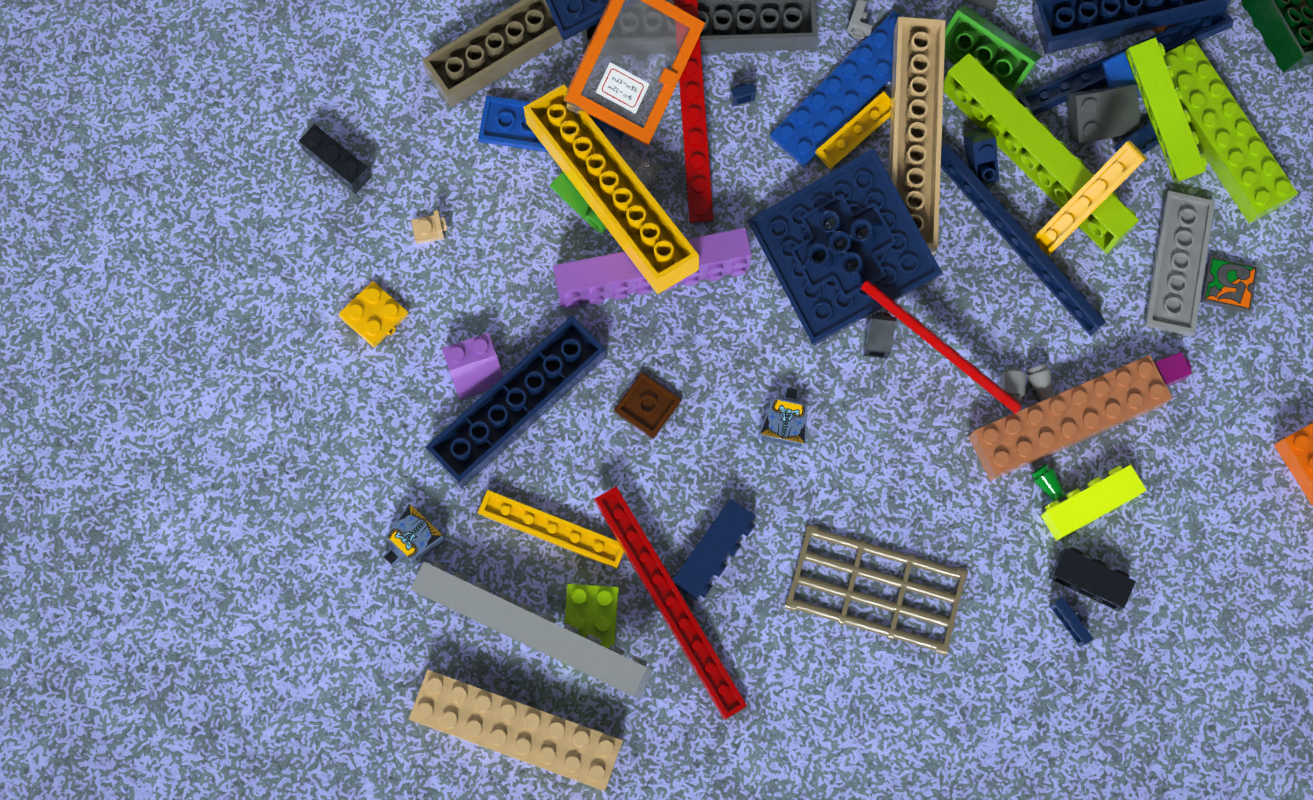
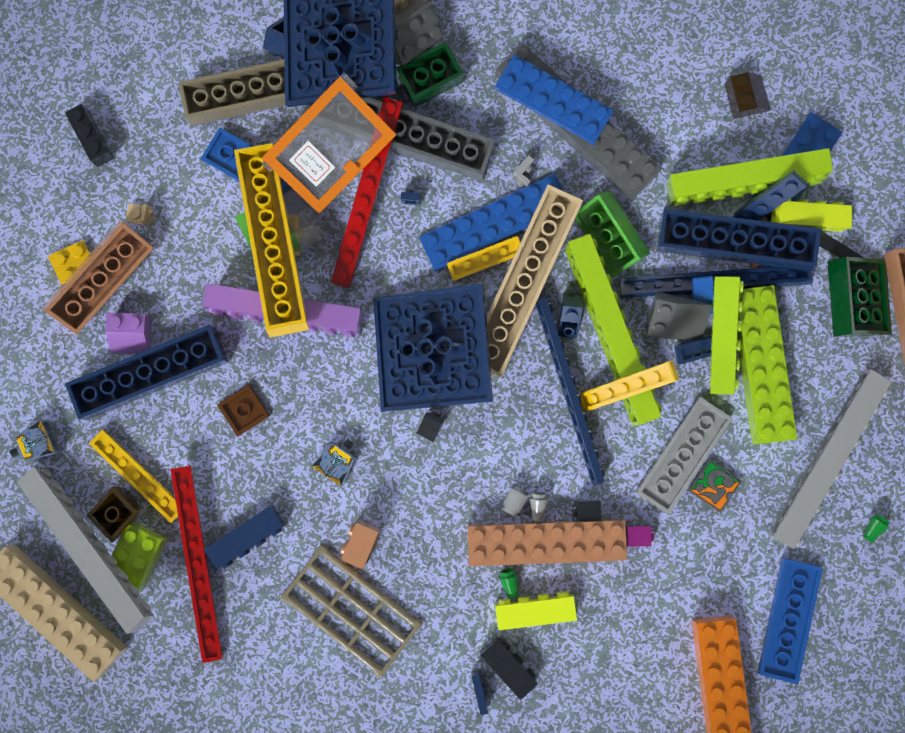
camera: 30 degrees right, 10 degrees up
(414, 311) = (98, 277): none -> nougat brick
(547, 578) = (114, 512): none -> dark brown slope
(858, 499) = (361, 544): none -> nougat brick
(941, 346) = (468, 455): red tile -> none
(1099, 363) = (587, 510): none -> black brick

